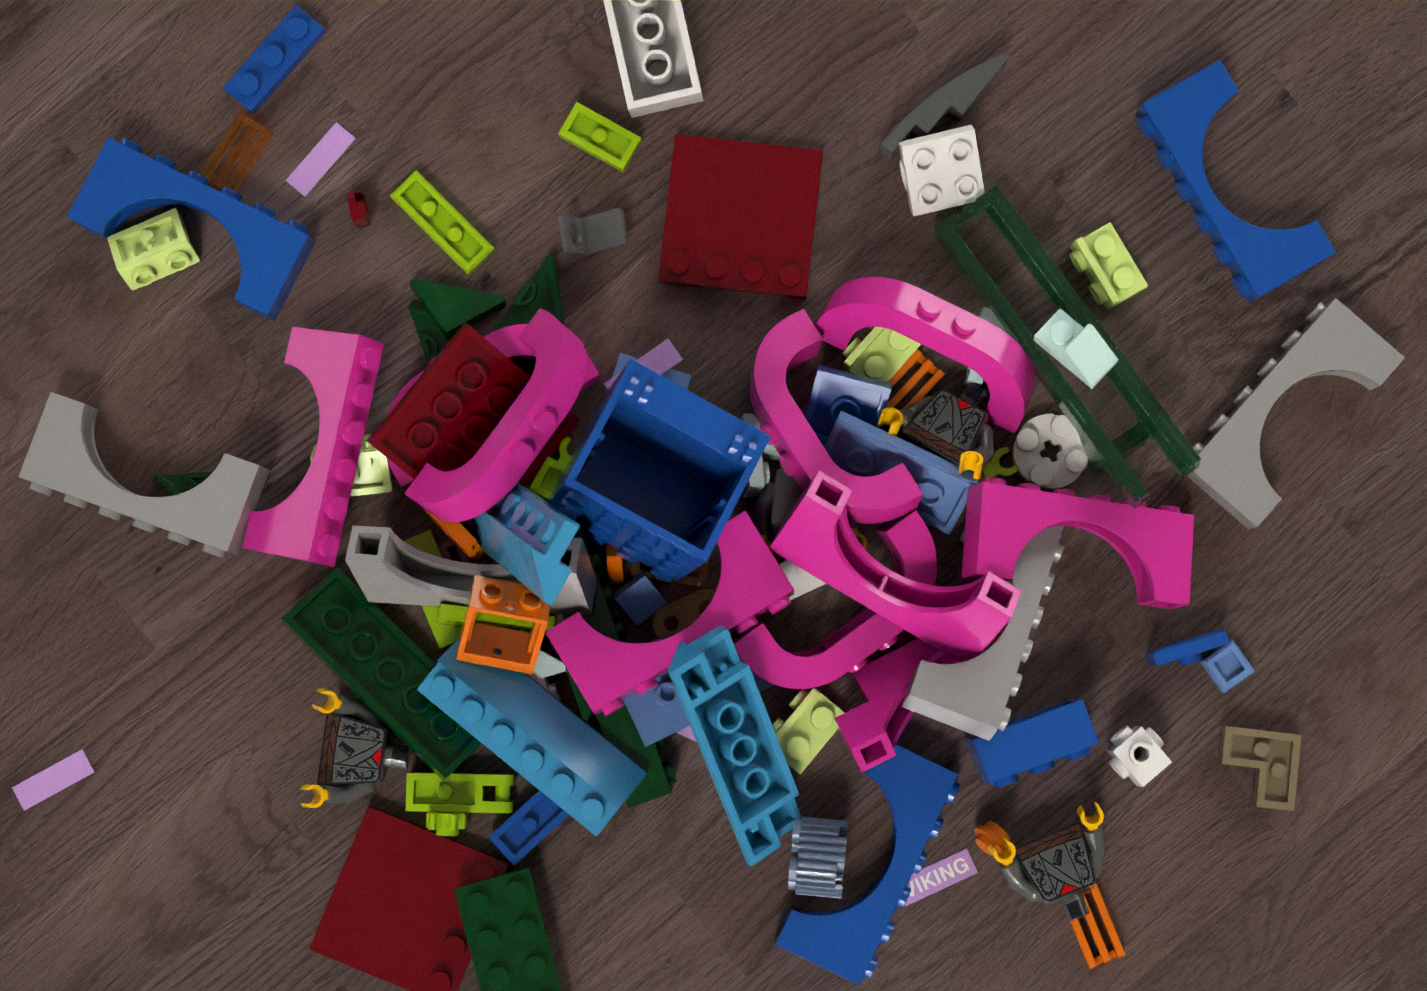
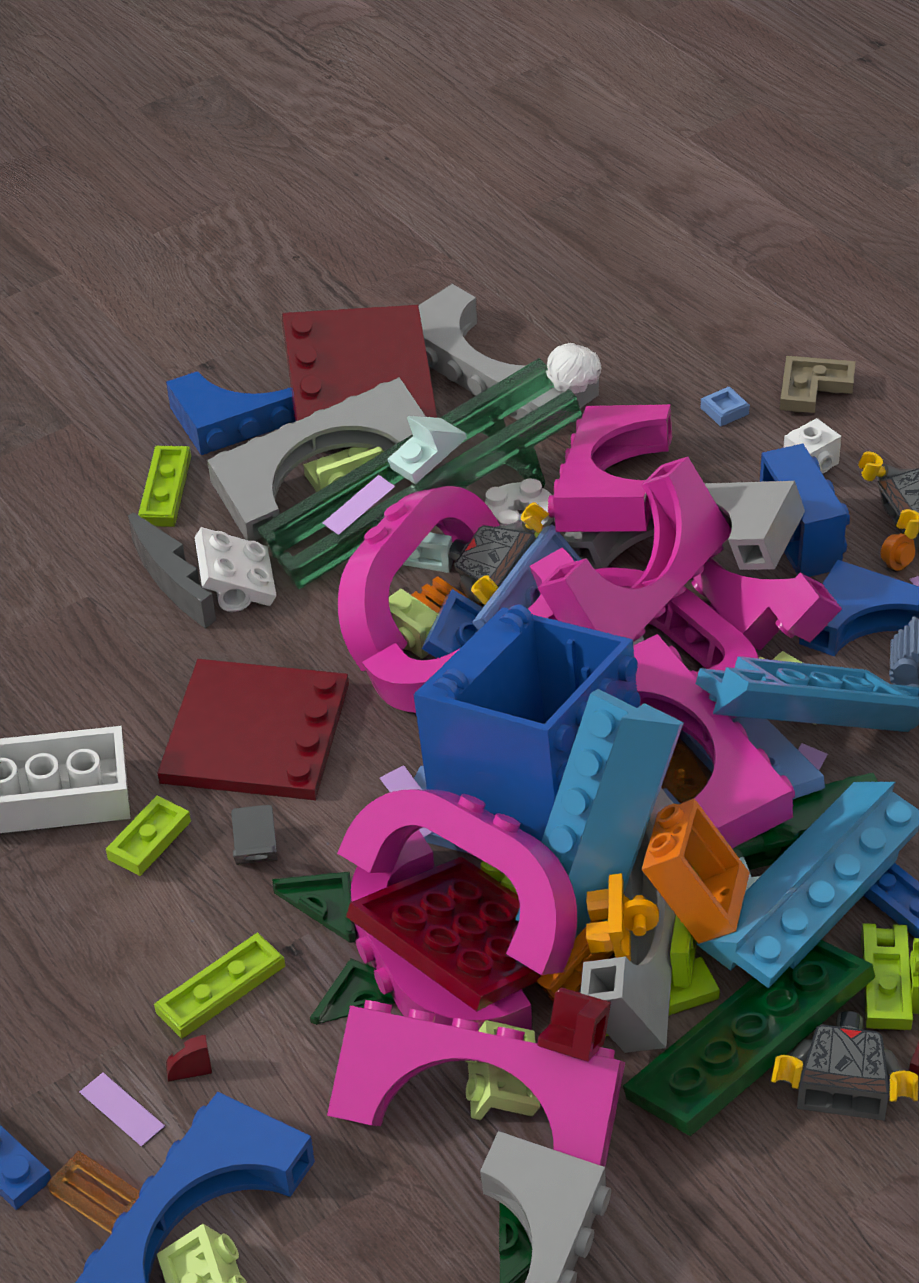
camera: 85 degrees left, 40 degrees down
(330, 521) = (576, 1025): none -> dark red panel
(454, 306) = (319, 972): dark green tile -> none
(456, 563) = (622, 915): none -> light orange hips
(1012, 285) = (358, 504): none -> lavender sticker
(1071, 171) = (253, 472): none -> light grey arch
(1080, 82) = (165, 485): none -> lime tile
(1187, 650) = (709, 422): blue plate -> none
(1237, 266) = (353, 352): none -> dark red plate
(1244, 498) = (573, 367): none -> white hair

